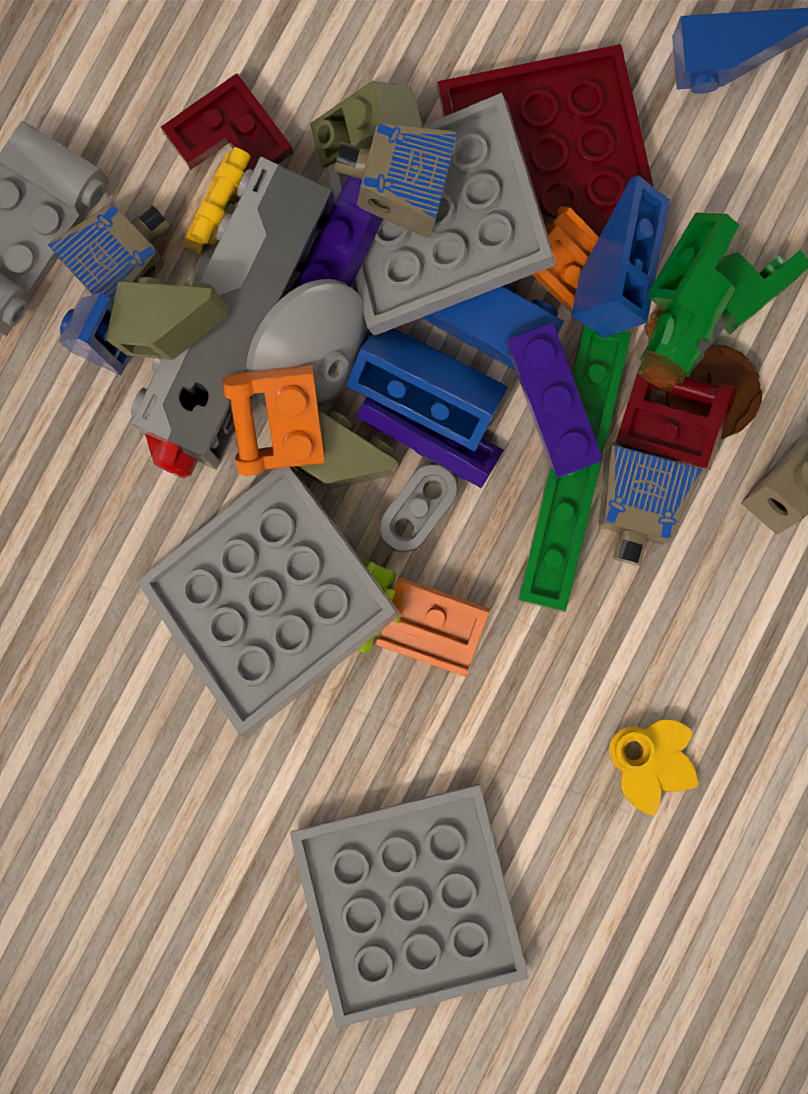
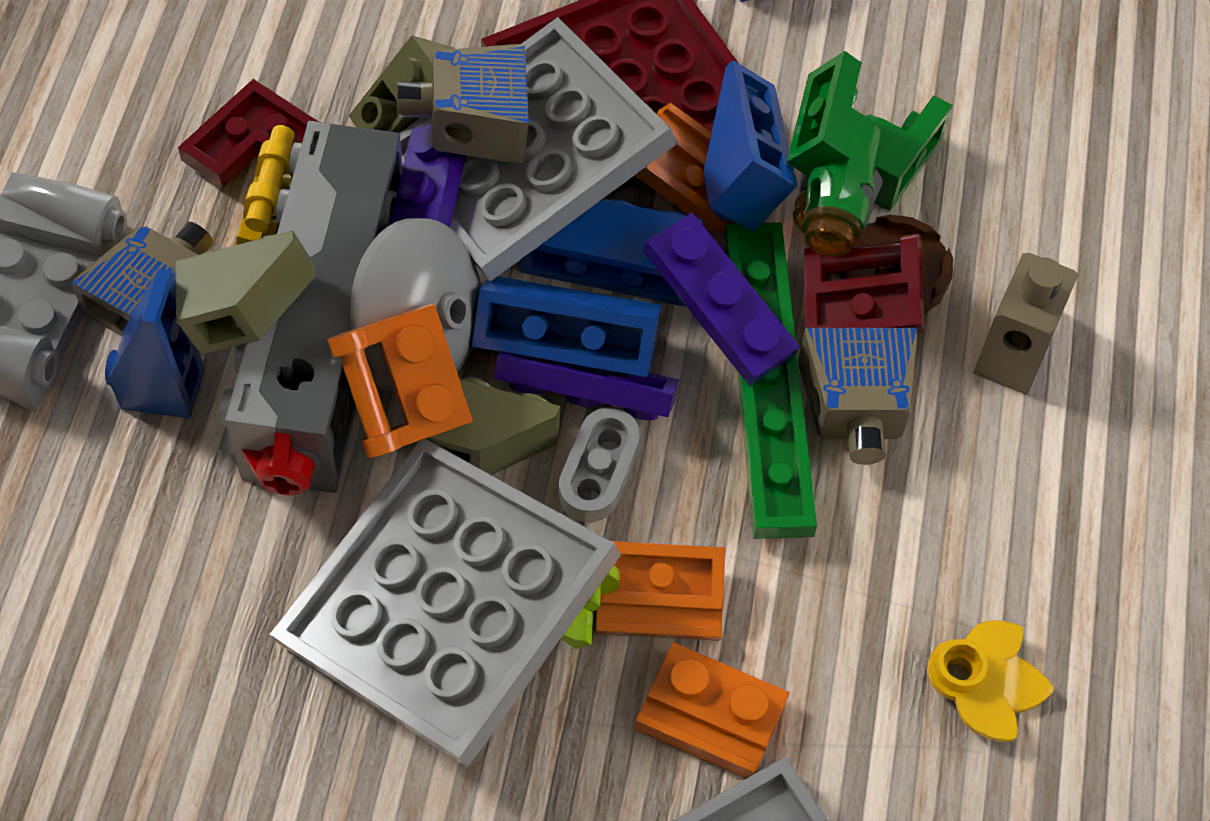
camera: 20 degrees left, 25 degrees down
(442, 728) = (711, 711): none -> orange plate

